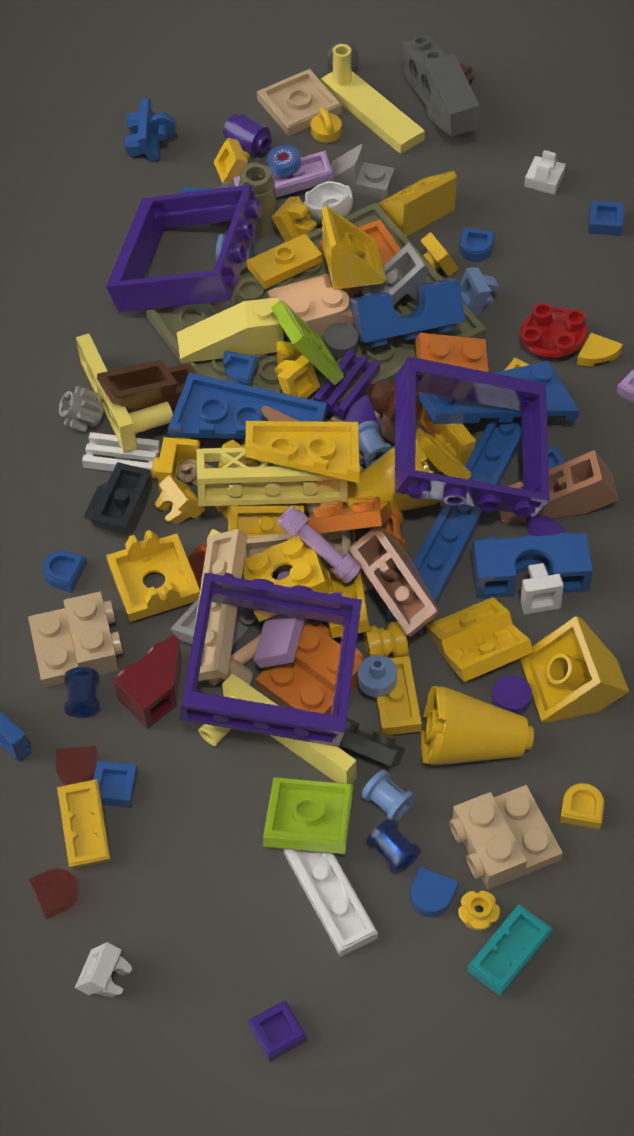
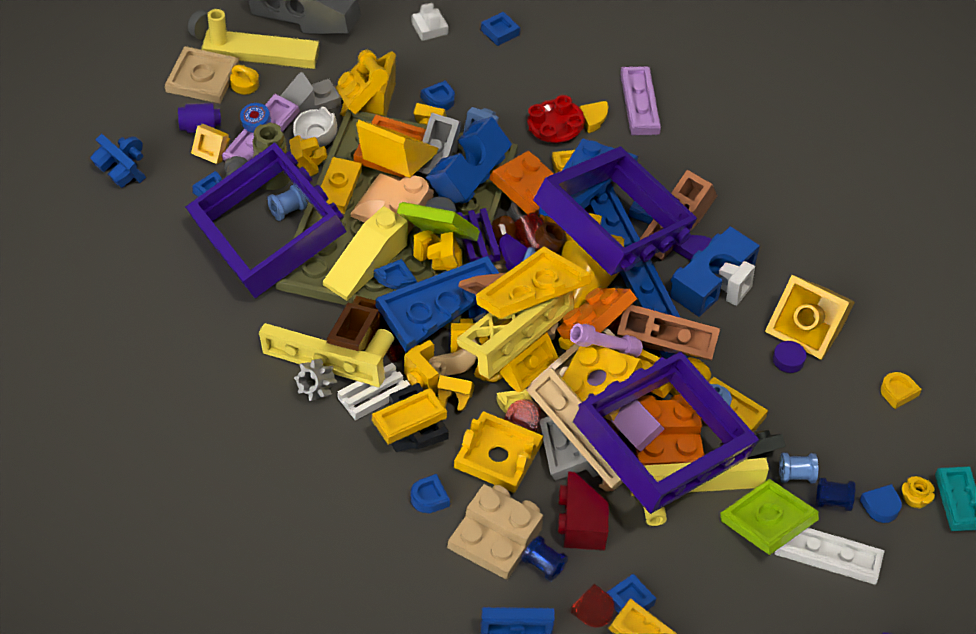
camera: 50 degrees left, 5 degrees down
(106, 490) = (409, 416): none -> yellow tile
(403, 183) = (354, 86): none -> yellow plate
(470, 730) = (796, 393): yellow cone -> none
(479, 639) = (741, 336): yellow slope -> none
(504, 836) = (882, 439): tan plate -> none

